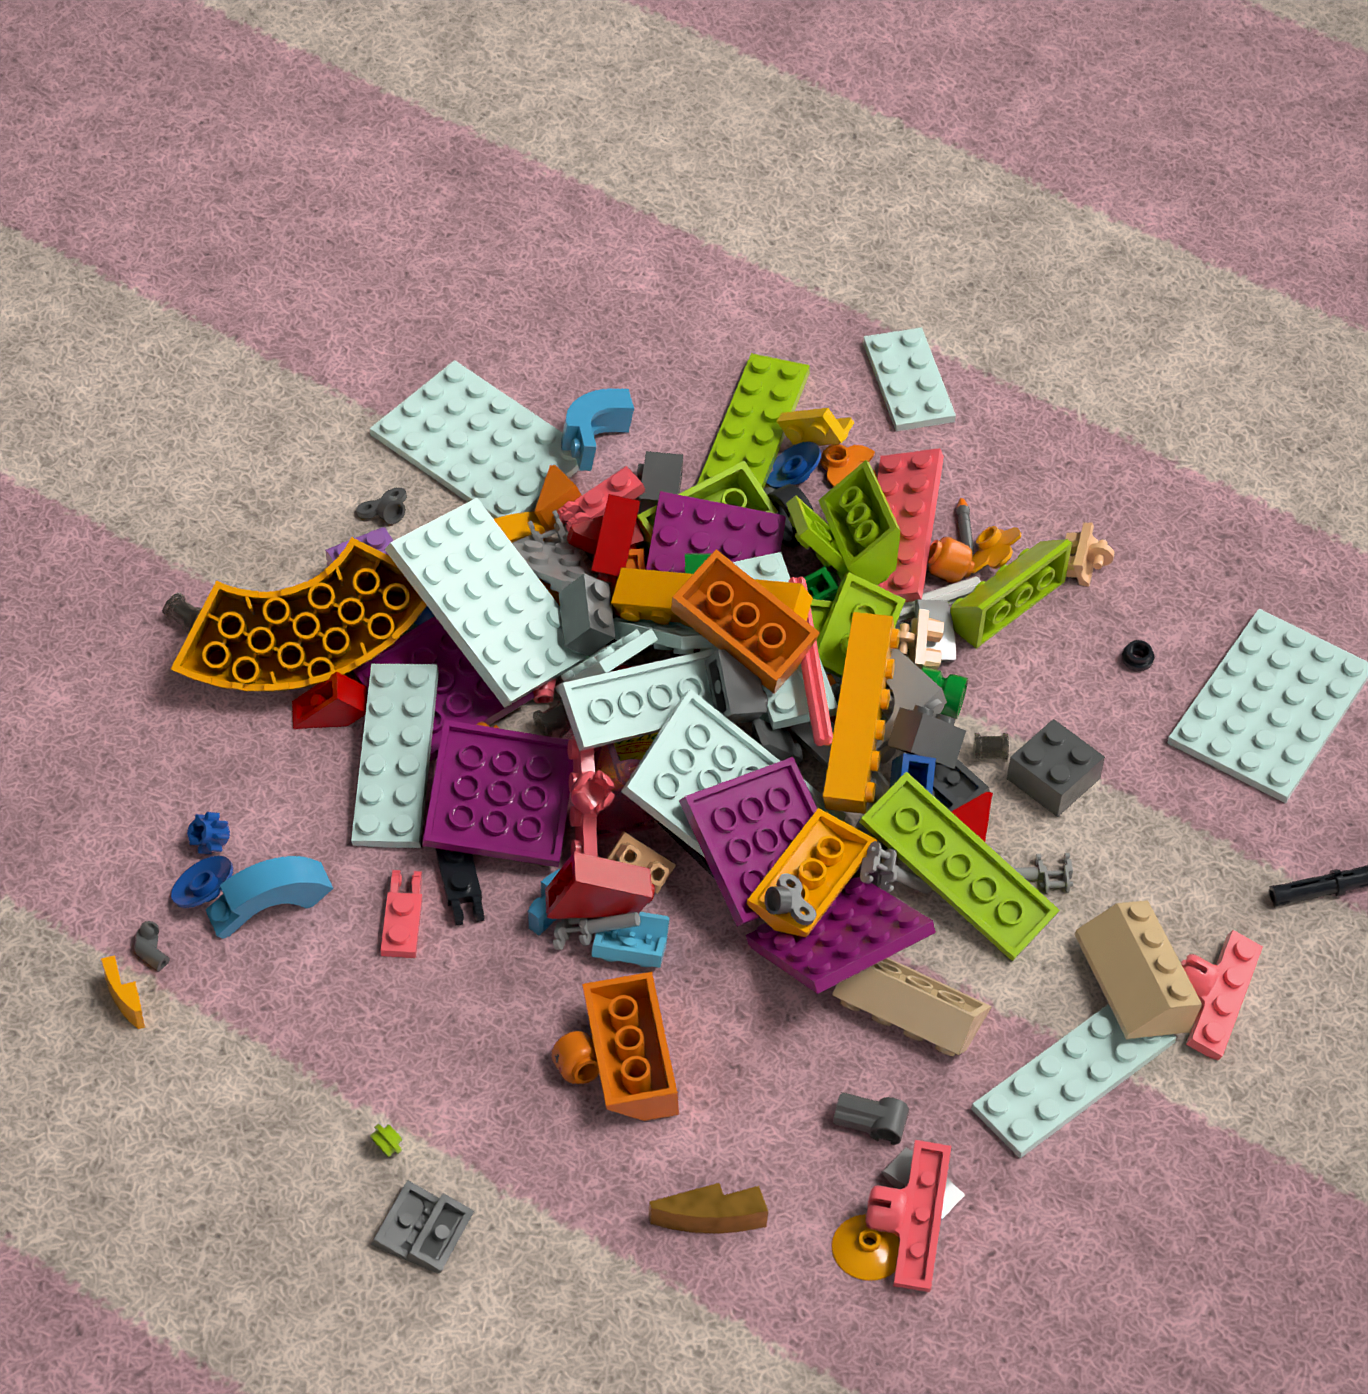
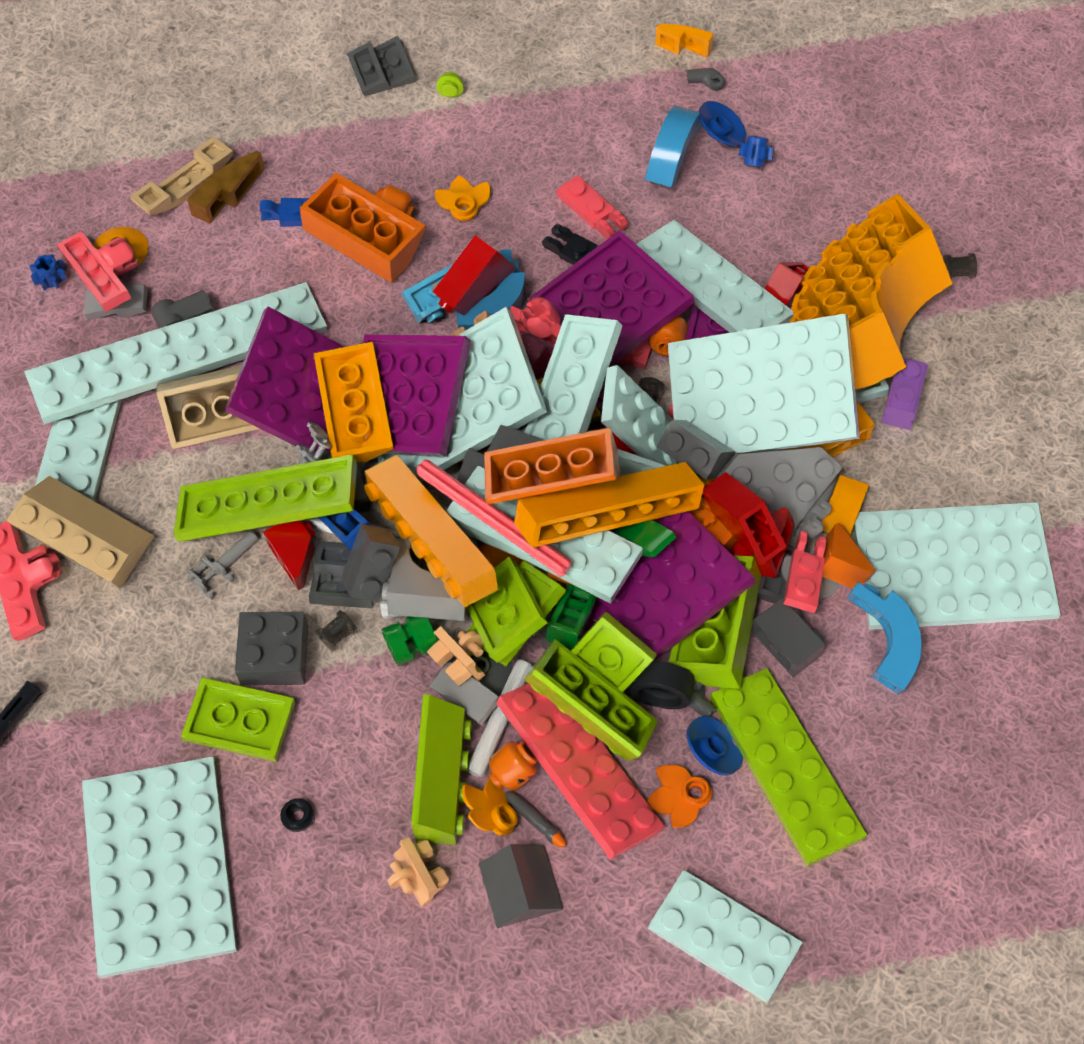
camera: 140 degrees right, 10 degrees up
(388, 507) = (949, 455): dark grey piece -> none
(499, 1023) = (462, 195): none -> light orange plate
(675, 1141) = (287, 212): none -> blue plate
(744, 1262) = (180, 185): none -> tan slope
(785, 899) = (341, 356): dark grey piece -> none
(815, 426) = (728, 787): yellow bracket -> none
(920, 1074) = (162, 355): none -> light aqua plate
(963, 1274) = (48, 271): none -> blue gear
(1019, 498) = (519, 884): none -> dark grey slope
(1132, 749) = (238, 719): none -> lime plate

